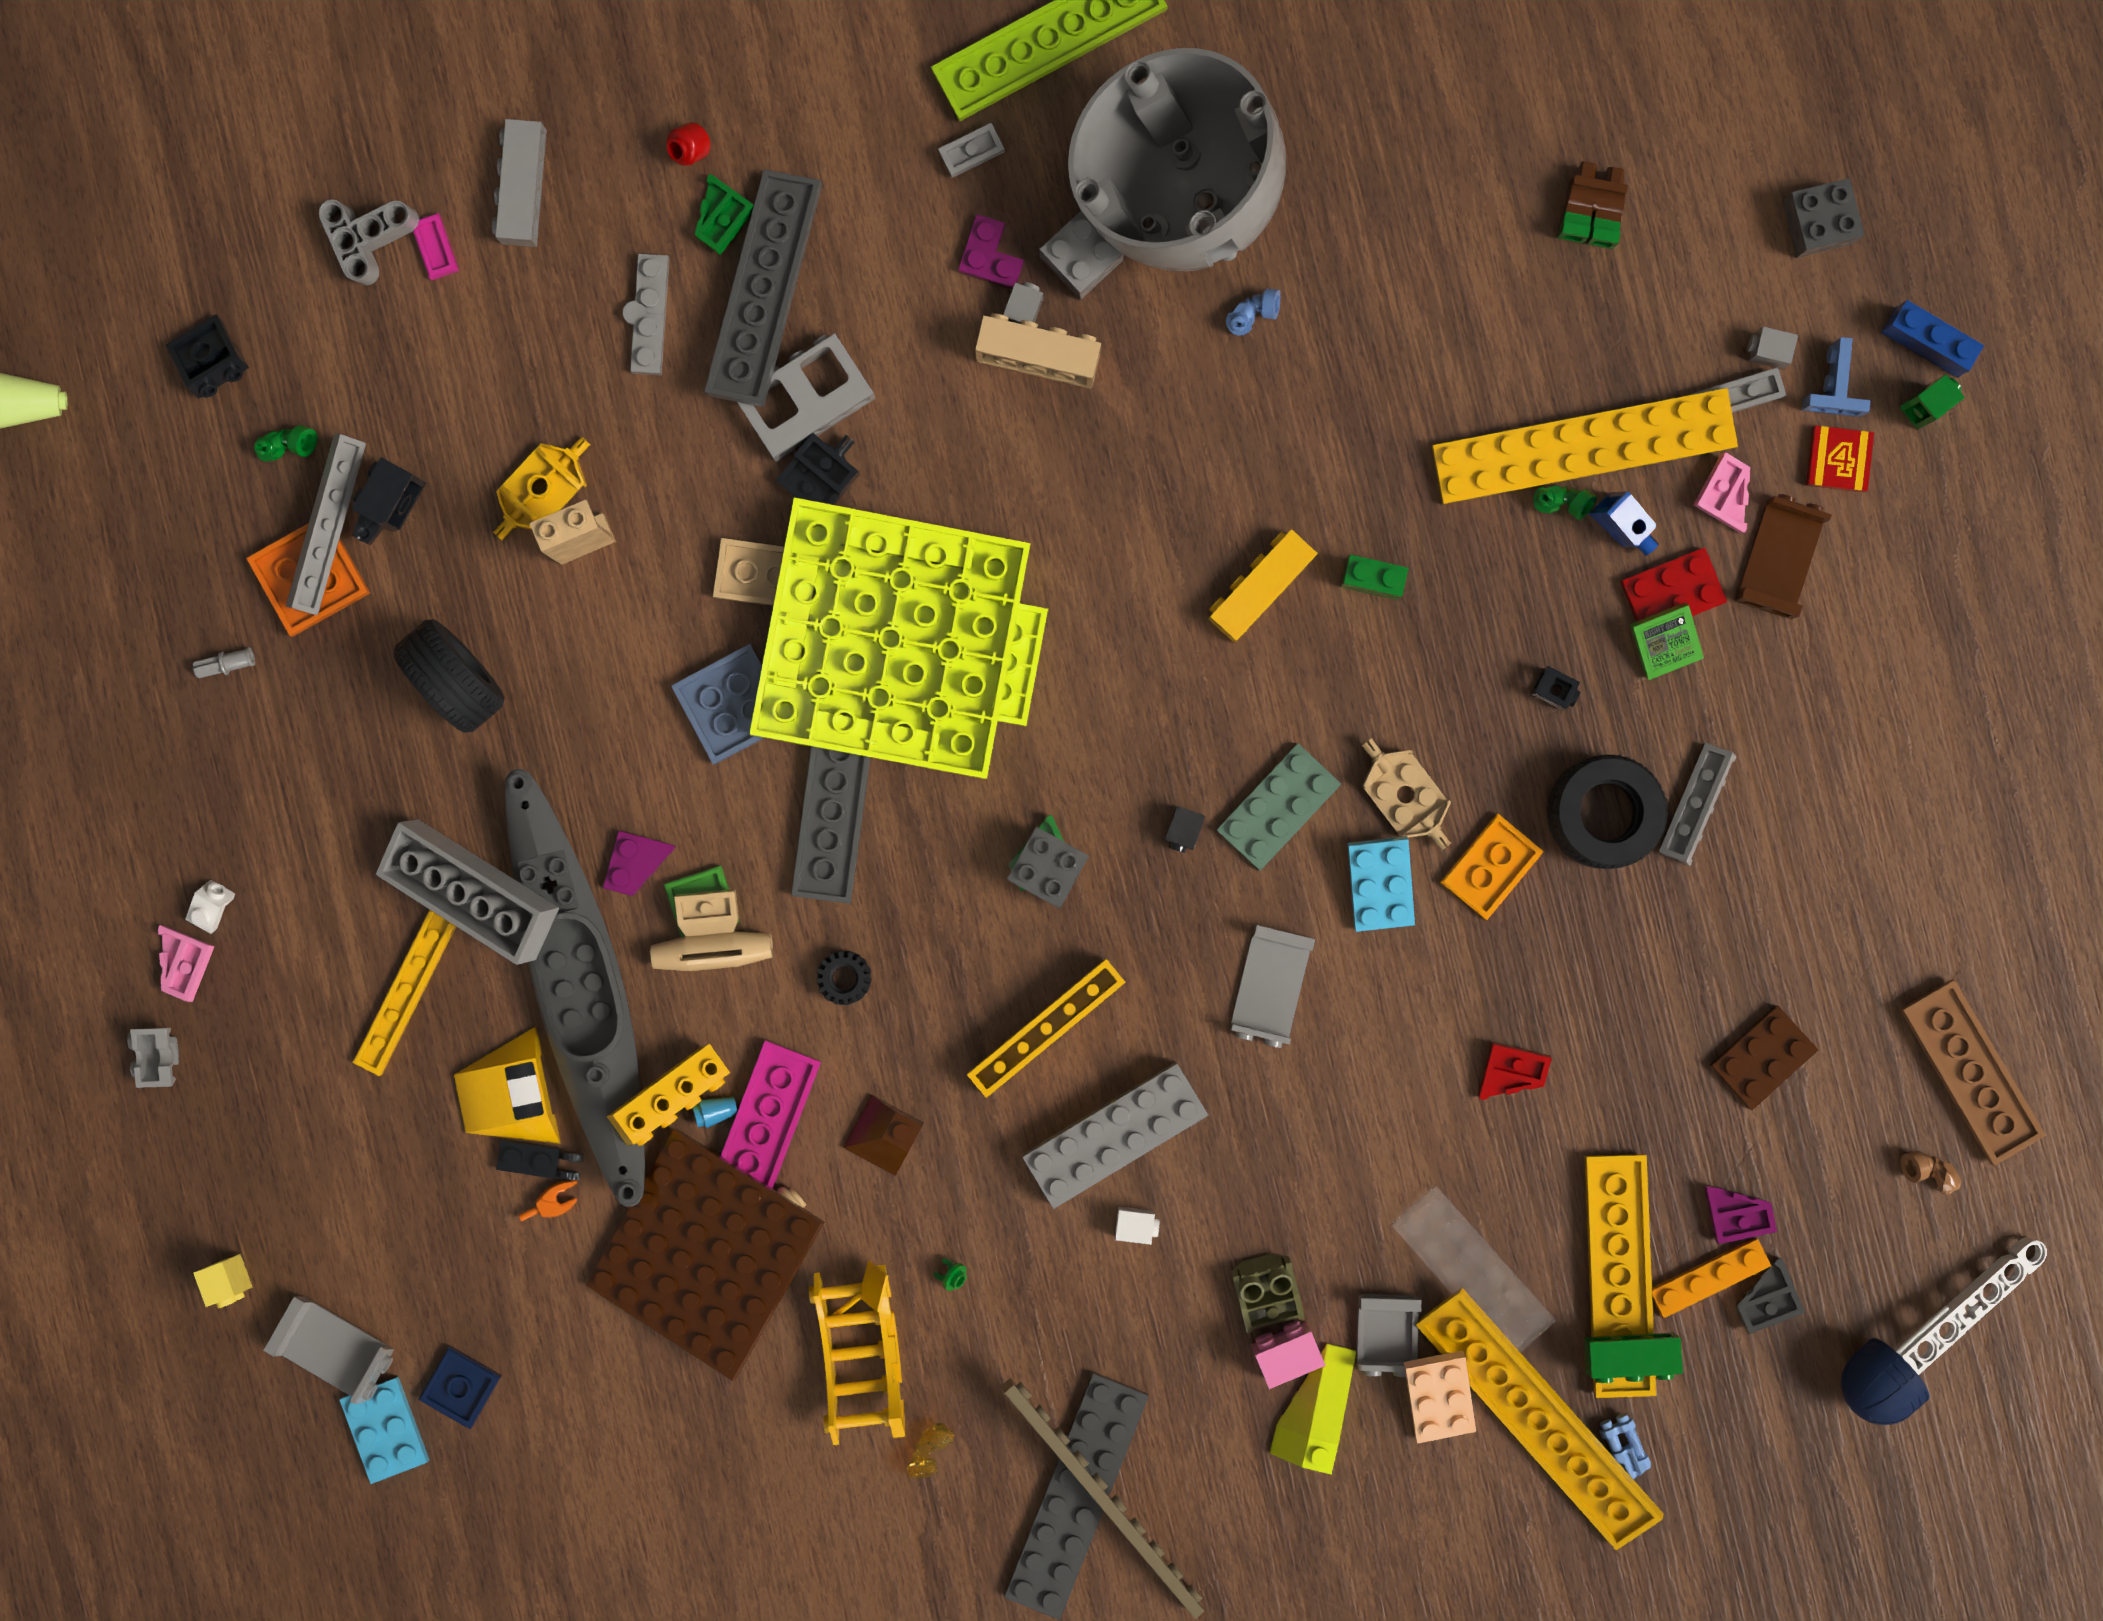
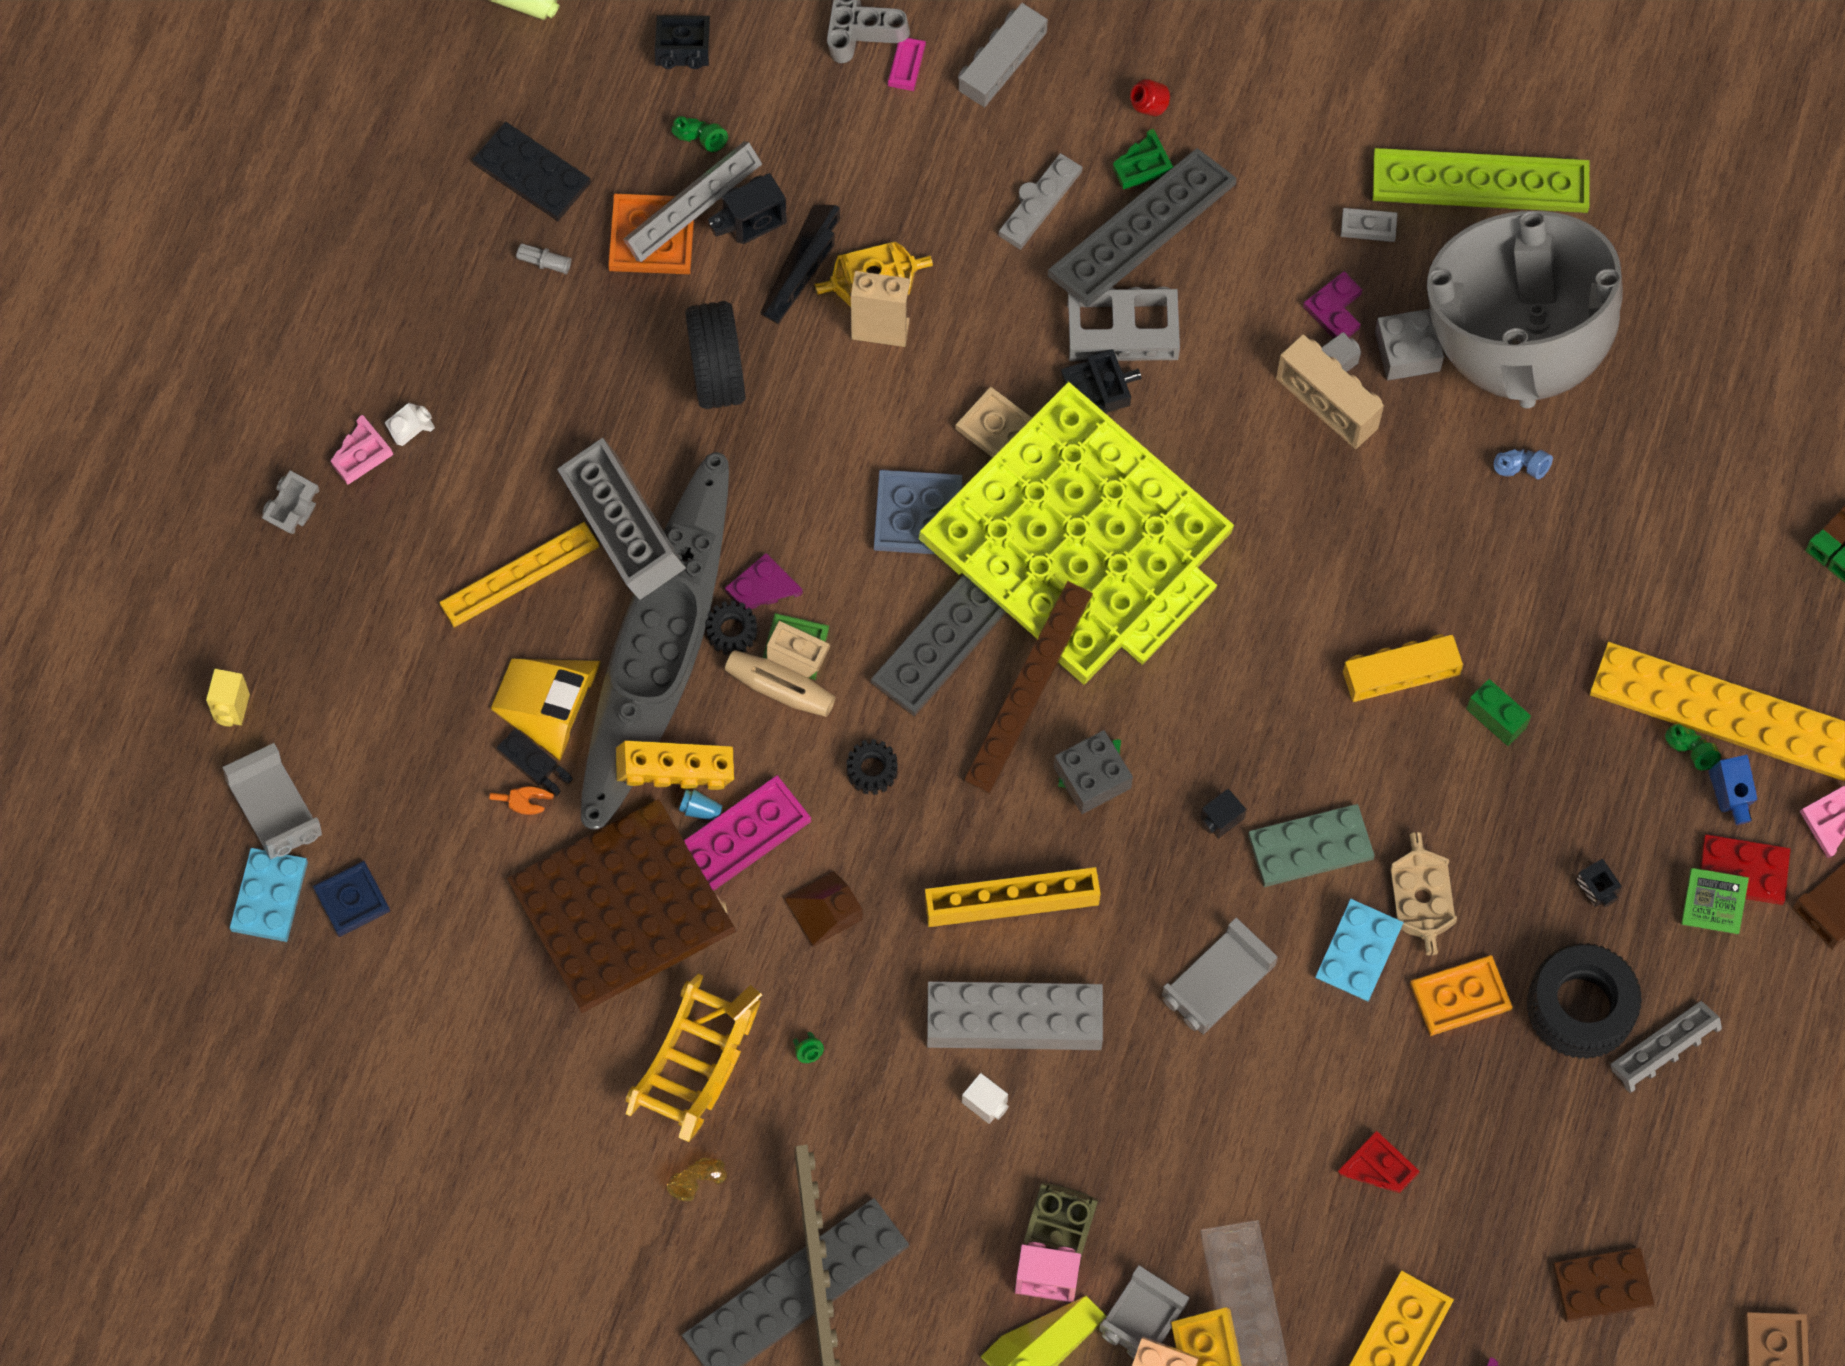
camera: 30 degrees right, 20 degrees down
(153, 579) = (531, 171): none -> black plate
(467, 514) = (804, 259): none -> black wedge
(617, 931) = (726, 613): none -> black tyre
(940, 818) = (1028, 687): none -> reddish brown plate

